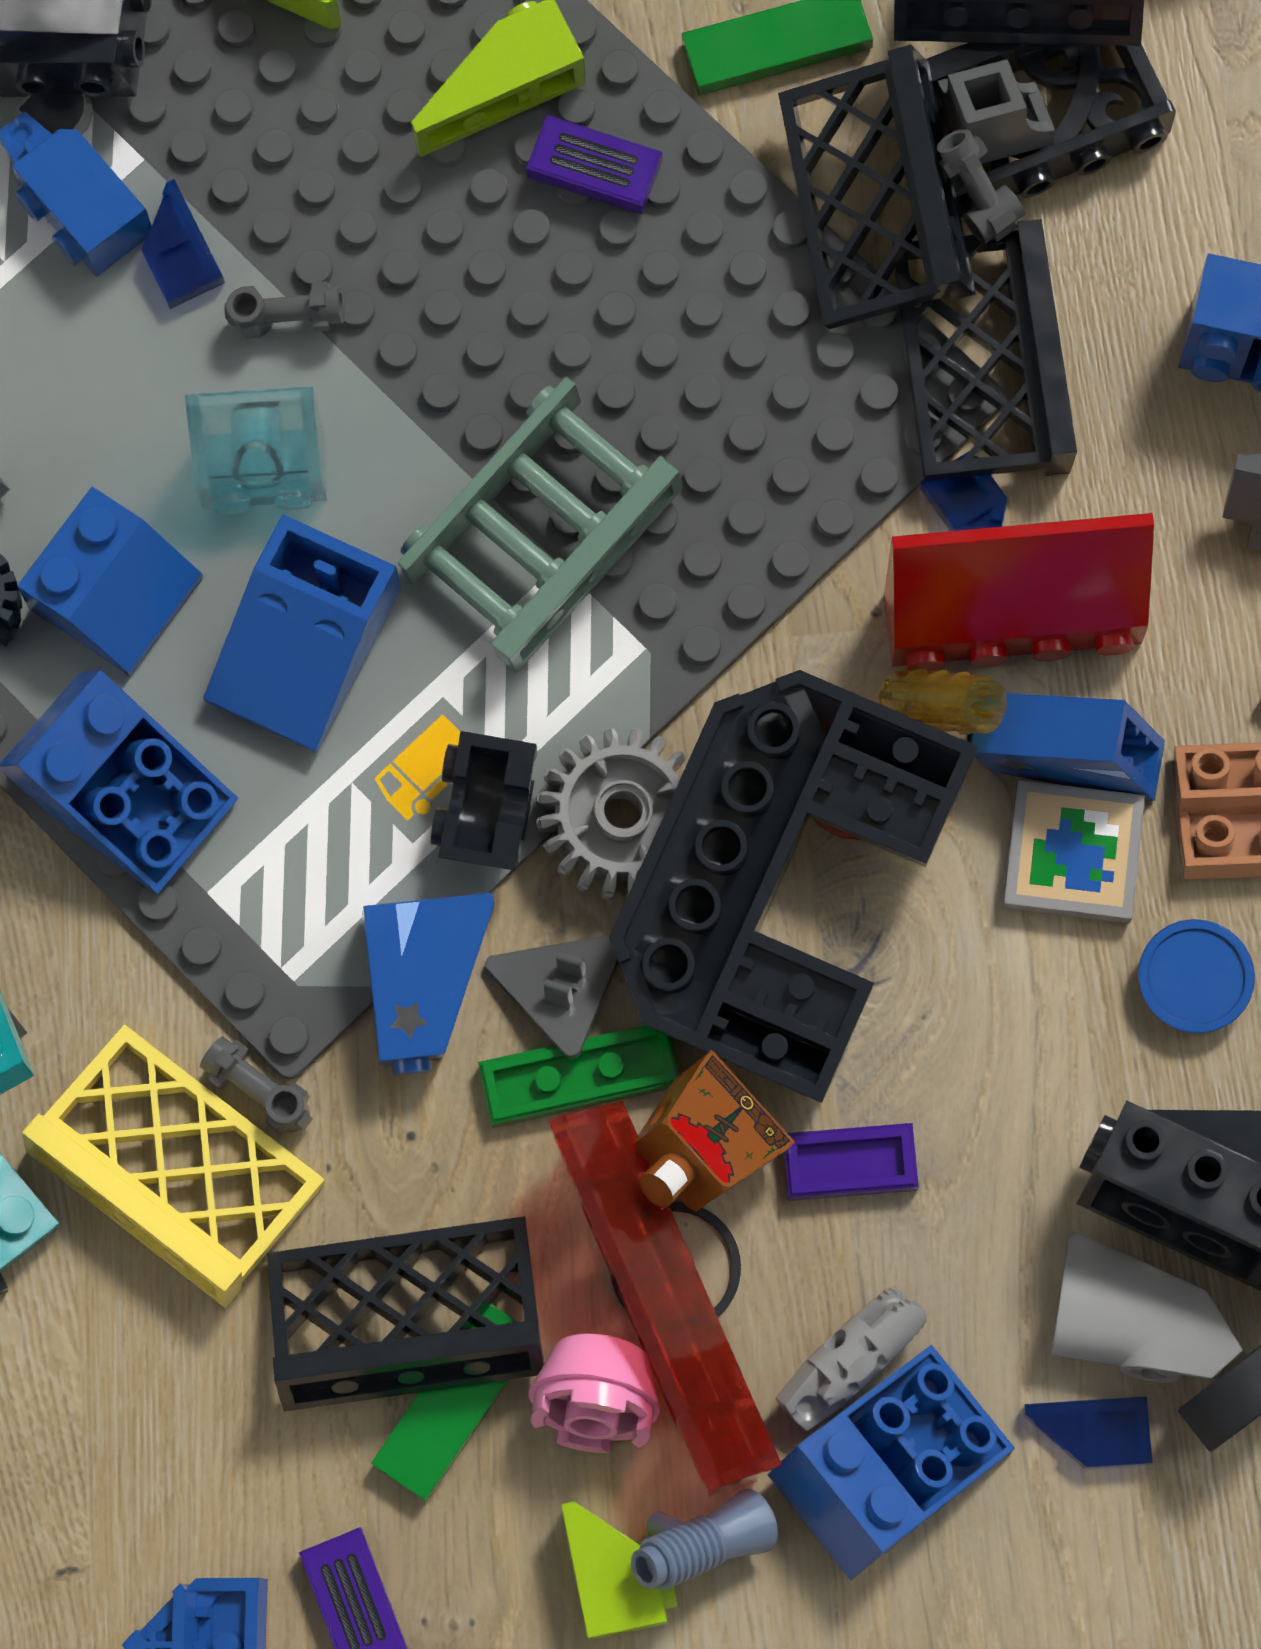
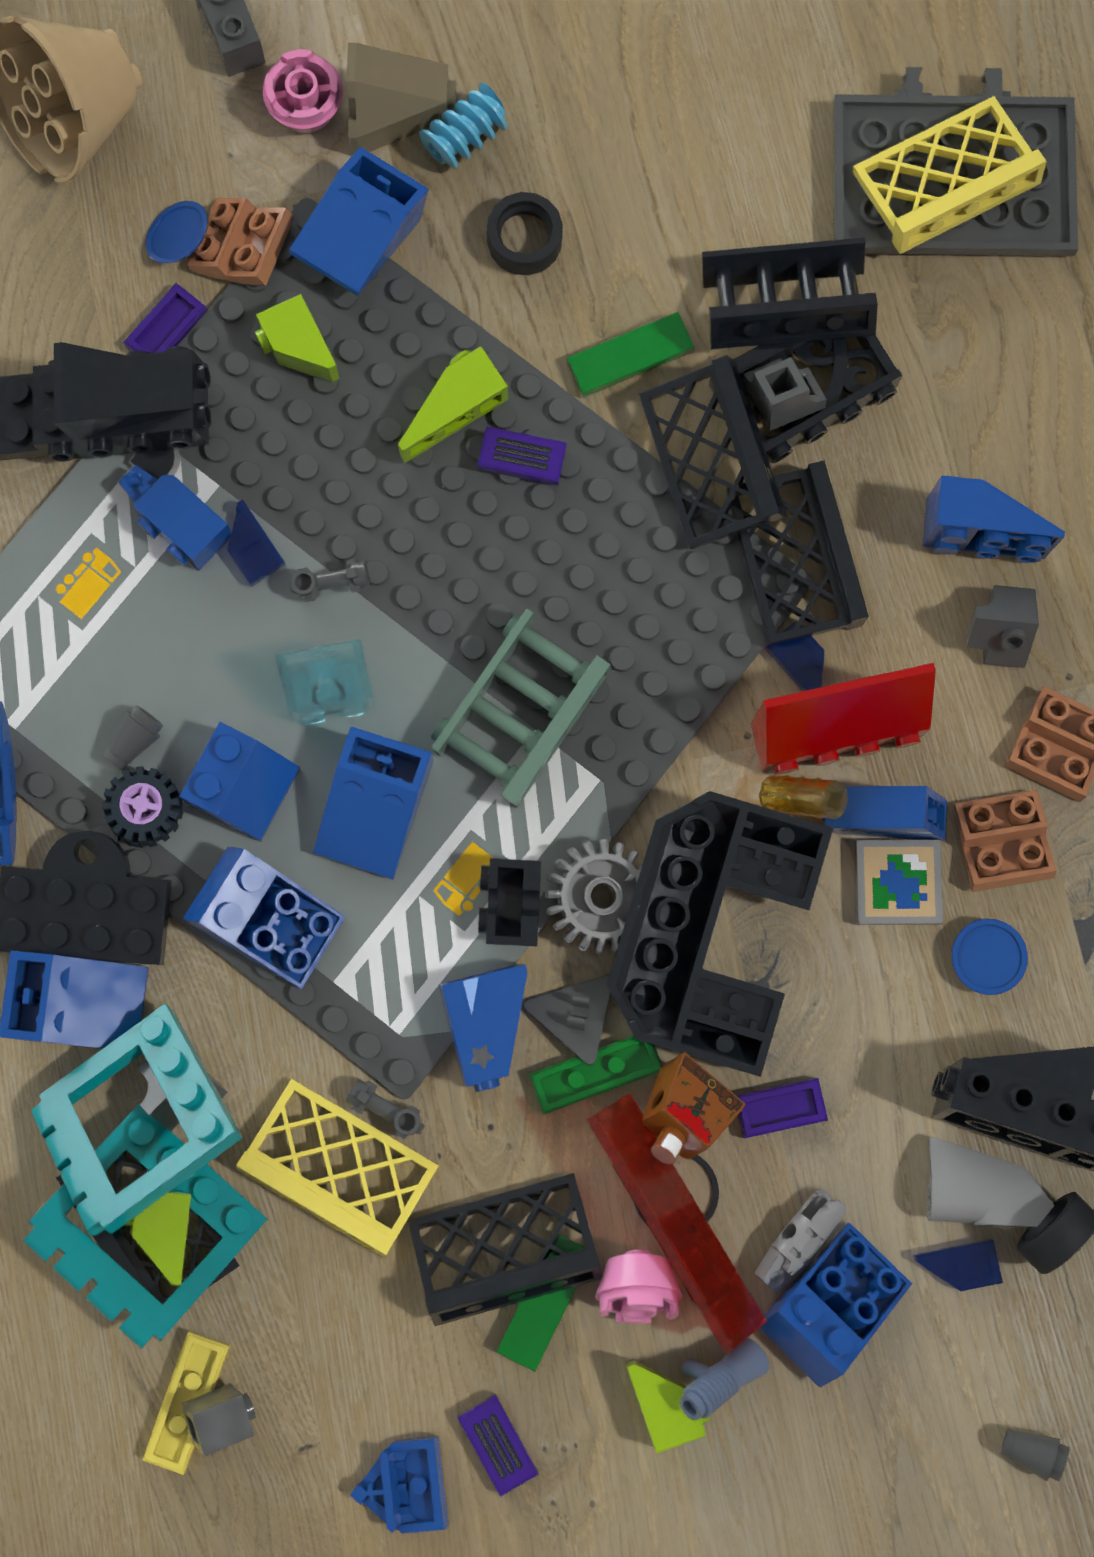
camera: 15 degrees left, 5 degrees up
(993, 210) = (792, 458): dark grey bar -> none

